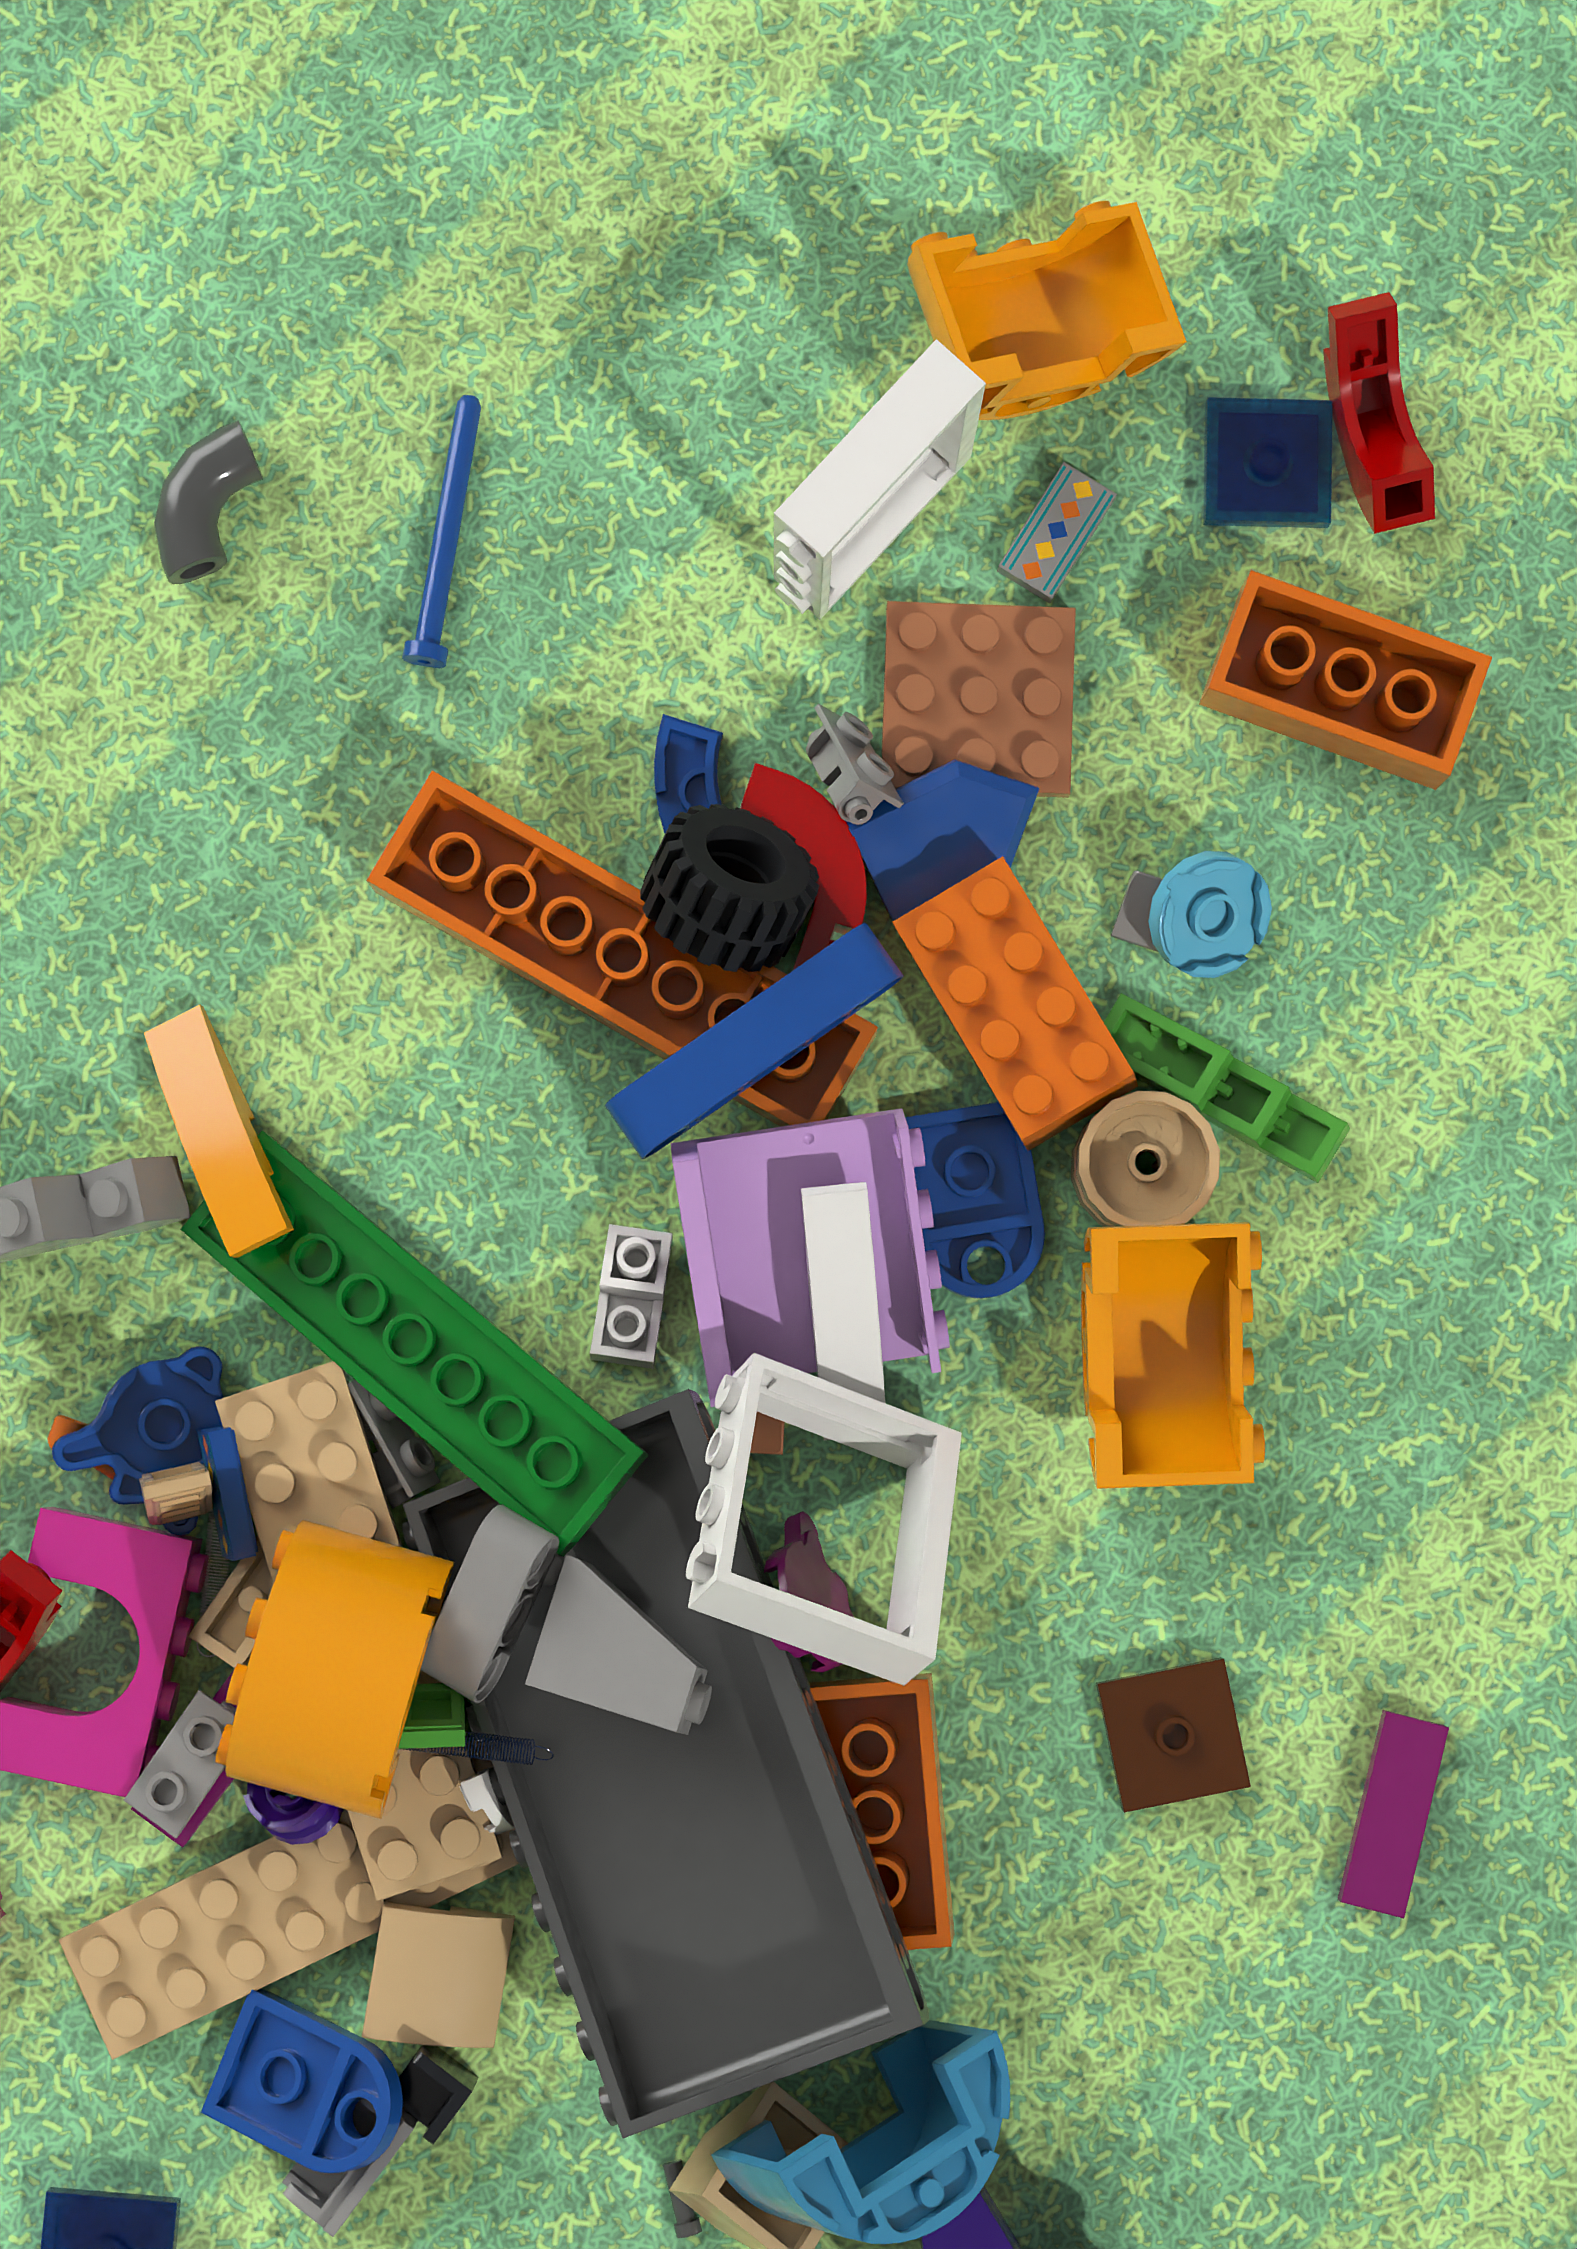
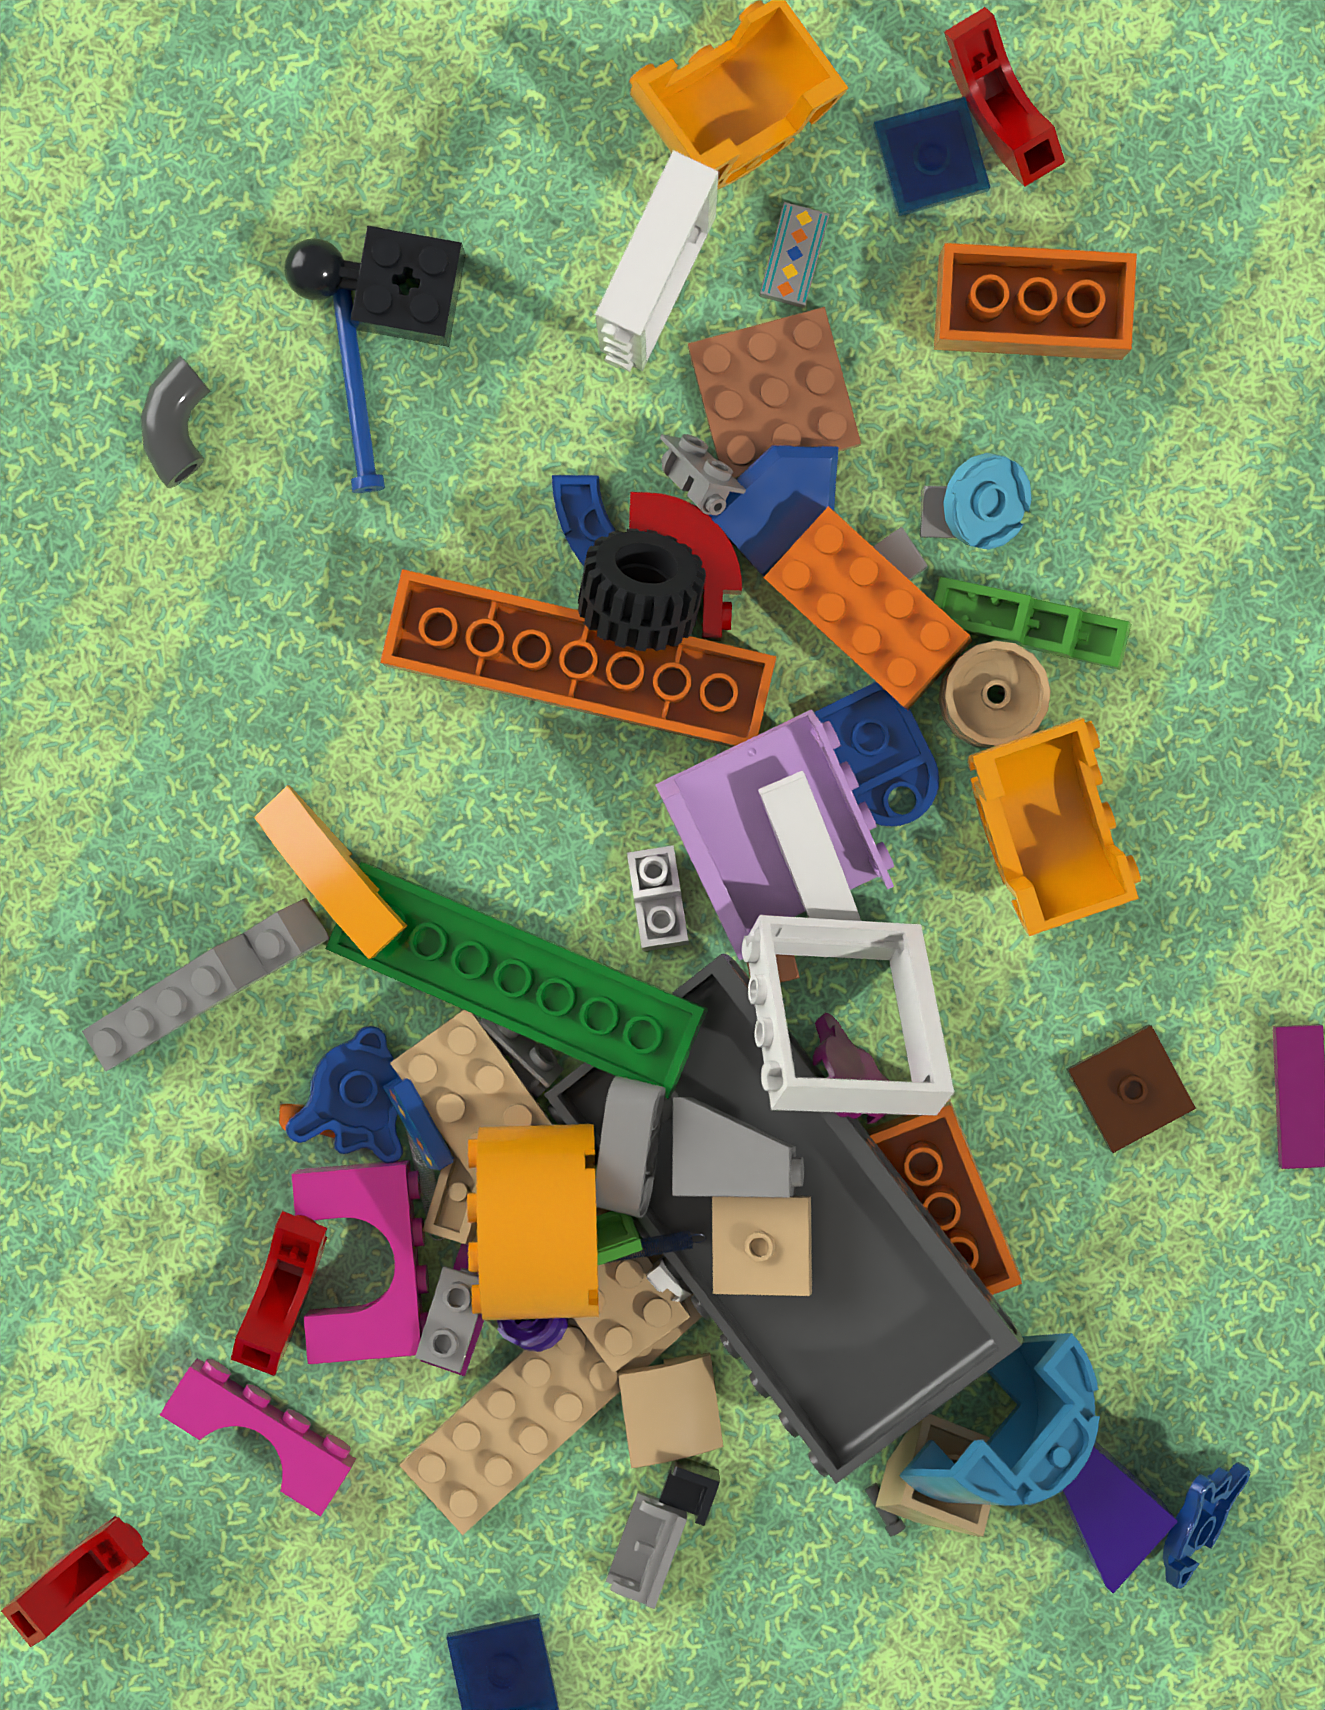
camera: 15 degrees left, 5 degrees up
(177, 1493) = (383, 1134): tan slope -> none
(296, 2084) = (596, 1513): blue tile -> none
(537, 383) = (388, 258): none -> black brick
(623, 1787) = (762, 1245): none -> tan plate
(754, 1040) = (692, 694): blue beam -> none
(1081, 948) = (902, 553): none -> light grey slope

